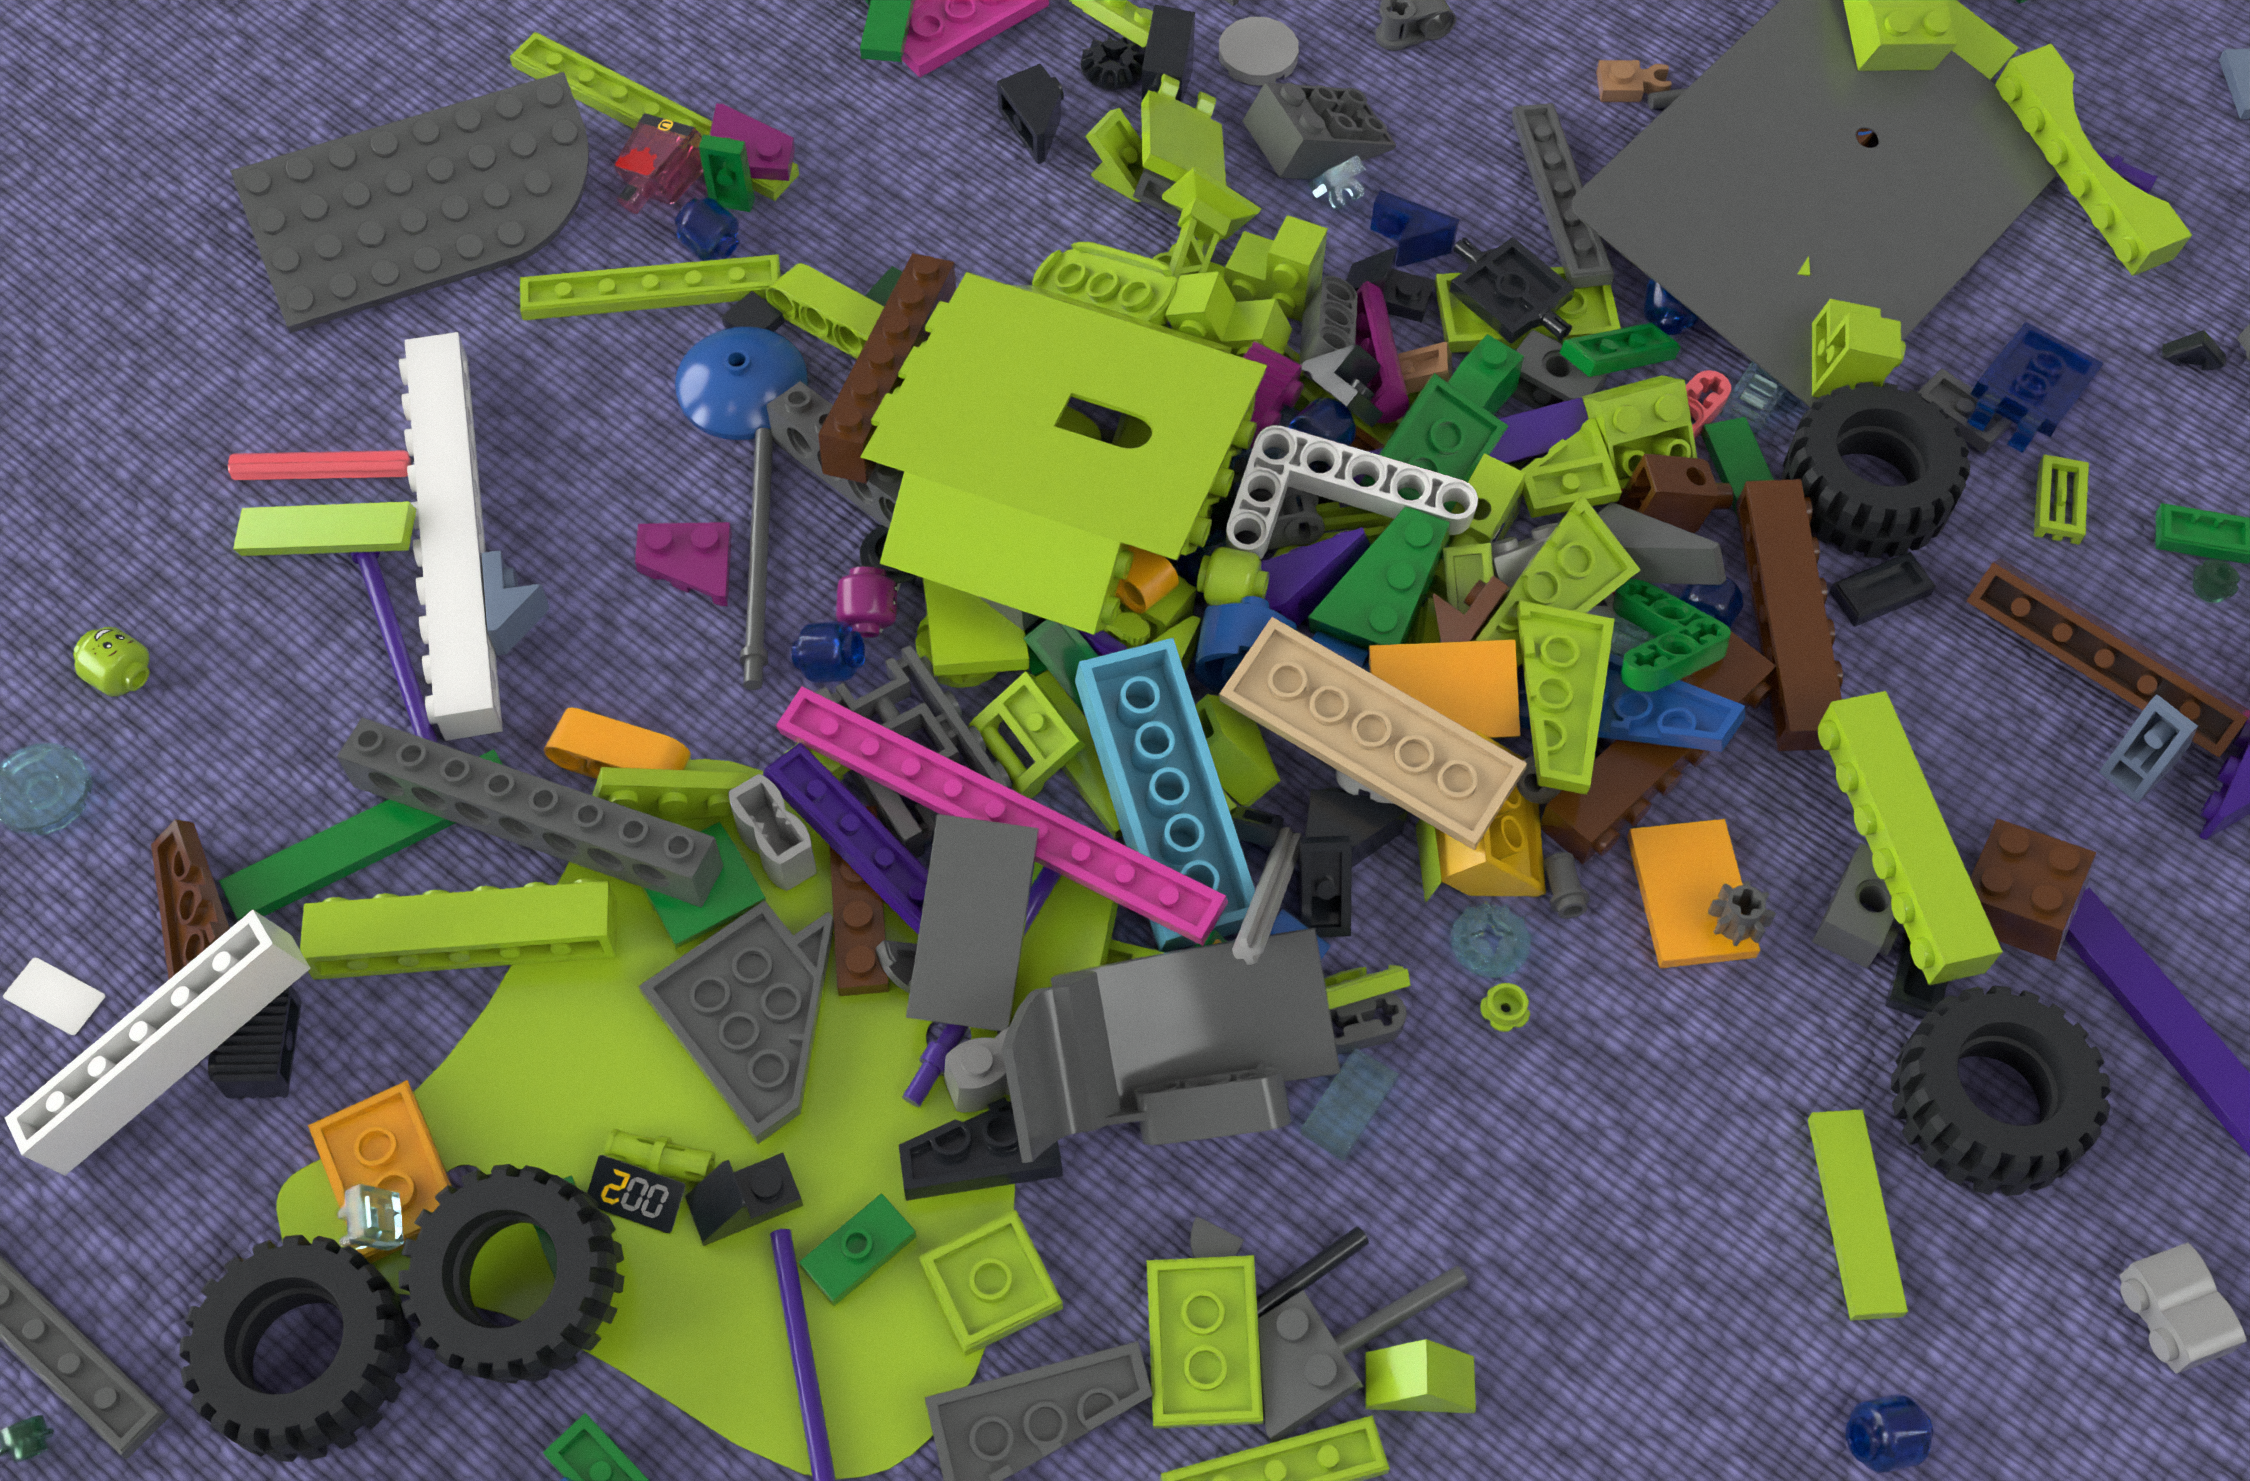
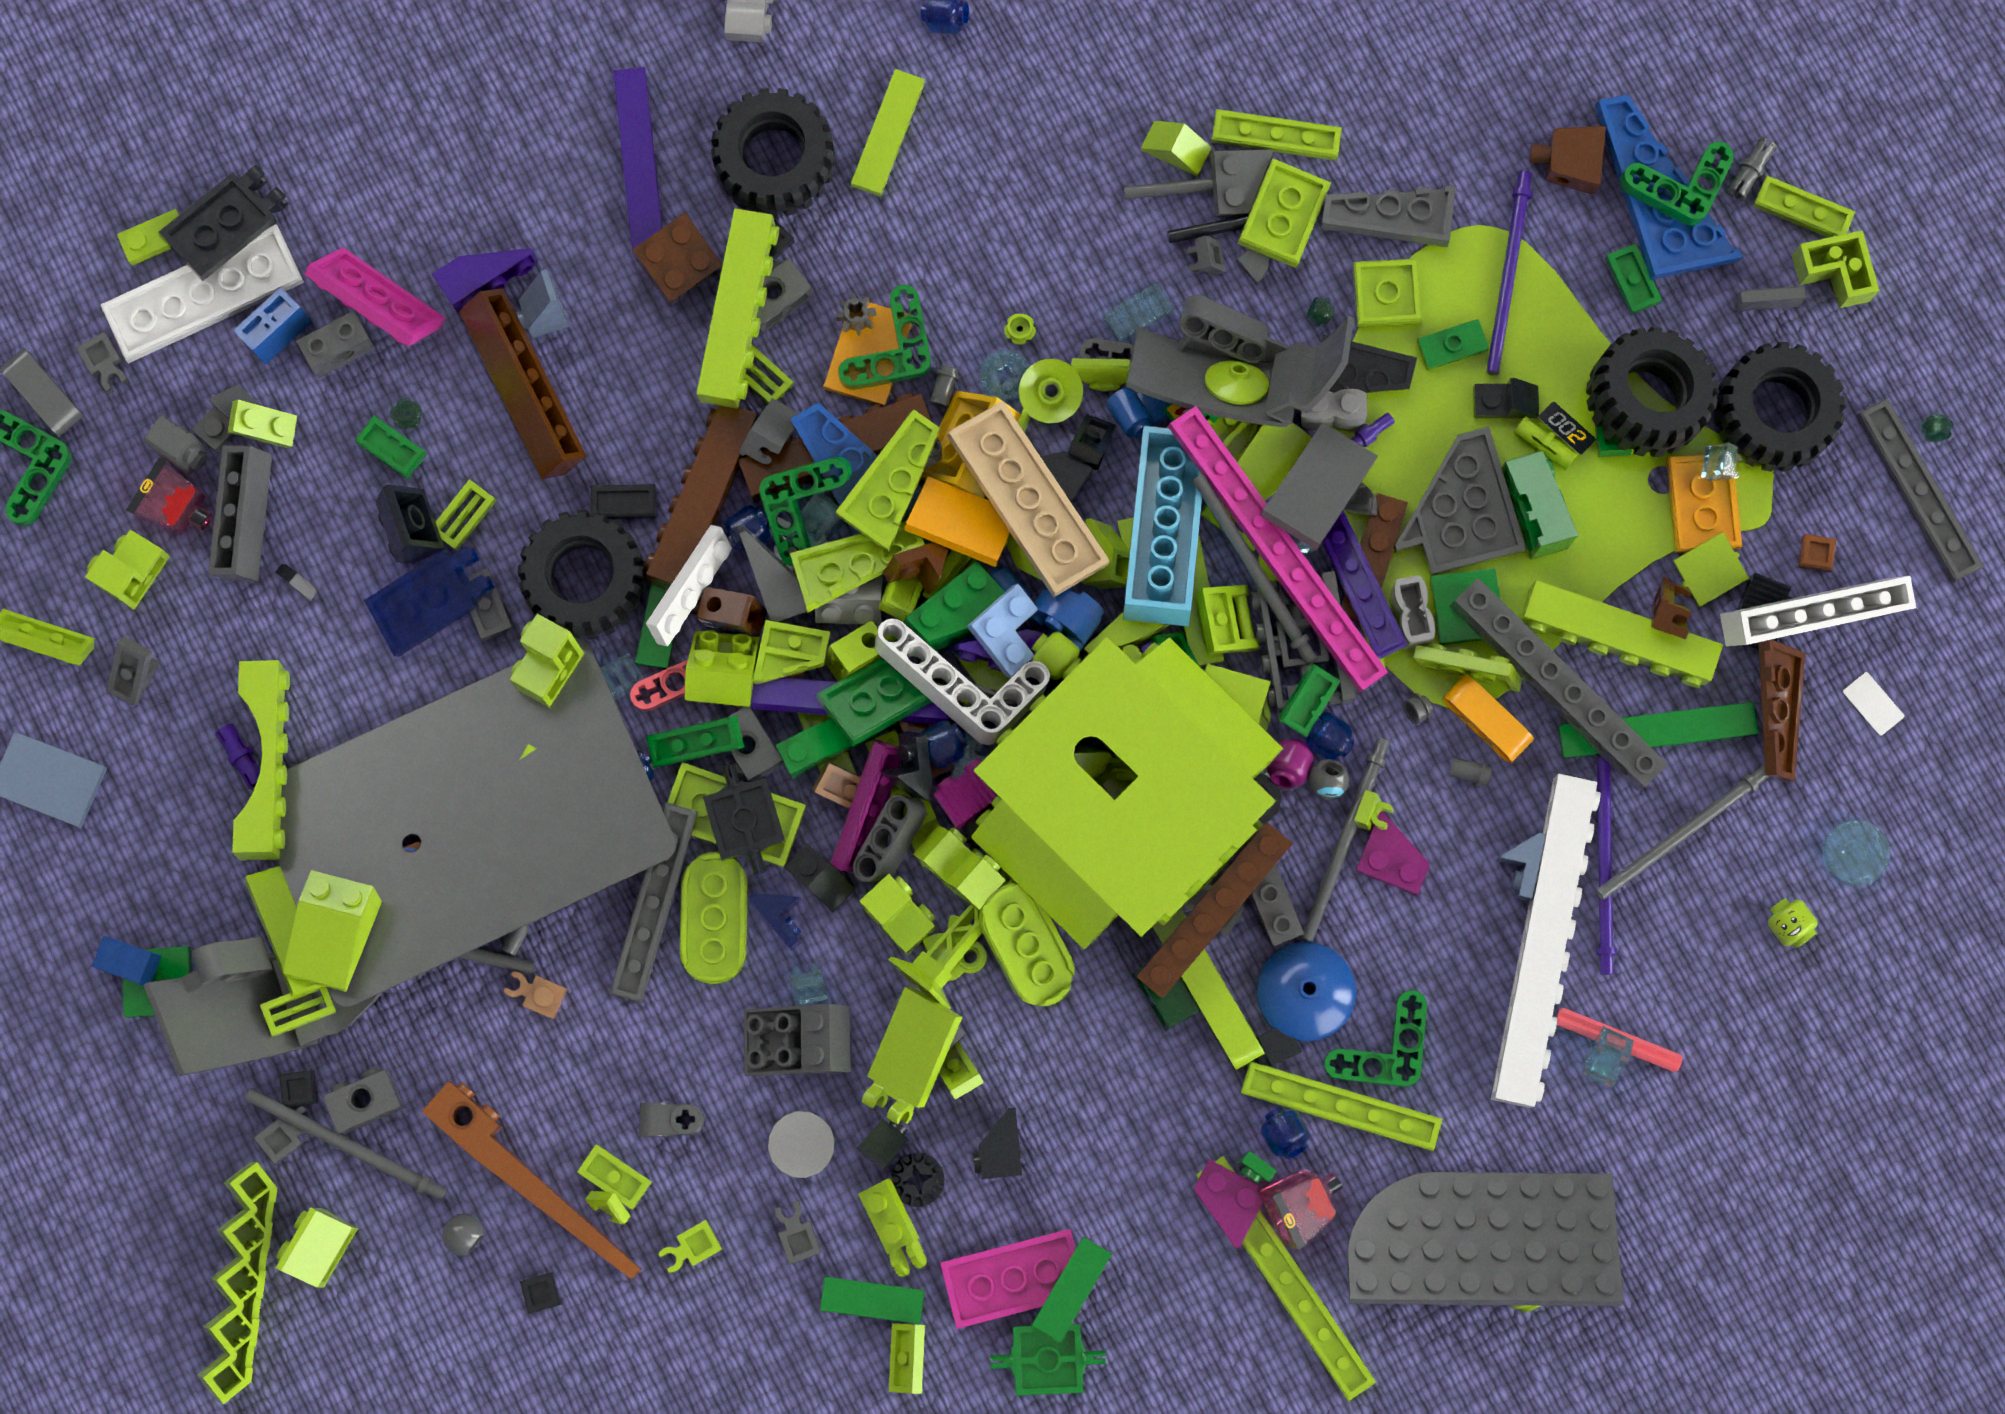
camera: 155 degrees left, 20 degrees up
(187, 1170) = (1817, 553): none -> dark orange tile
(219, 816) = (1748, 784): none -> dark grey bar
(325, 528) = (1629, 971): lime tile -> none
(326, 427) = (1607, 1057): none -> clear light blue brick
(349, 1075) = (1710, 569): none -> lime piece
(391, 974) = (1667, 614): none -> reddish brown hinge
(607, 346) = (1388, 1062): none -> green beam
(618, 686) = (1470, 771): none -> dark grey pin
(636, 1048) = (1539, 505): none -> wedge
(719, 734) = (1418, 708): none -> dark grey plate
(737, 586) = (1369, 810): none -> lime tile
(806, 599) = (1328, 779): none -> dark grey piece
(872, 666) = (1308, 700): none -> green plate
(919, 732) = (1298, 640): none -> dark grey bar
(1081, 1212) = (1320, 311): none -> clear green plate
(1145, 1010) = (1236, 382): none -> lime dish
(1257, 826) = (1113, 500): black tile -> none
(1267, 897) = (1136, 429): light grey axle -> none
(1287, 1221) = (1209, 256): none -> dark grey tile
(1324, 572) = (997, 628): none -> light blue plate
(1416, 931) = (1034, 396): none -> lime dish
(1483, 199) = (713, 918): none -> lime tile
(1648, 889) = (899, 357): none -> green beam
(1741, 481) = (689, 585): none -> white plate
(1761, 734) = (769, 431): none -> dark grey hinge
(1814, 814) = (778, 391): none -> lime tile
(2122, 438) = (408, 523): none -> black slope

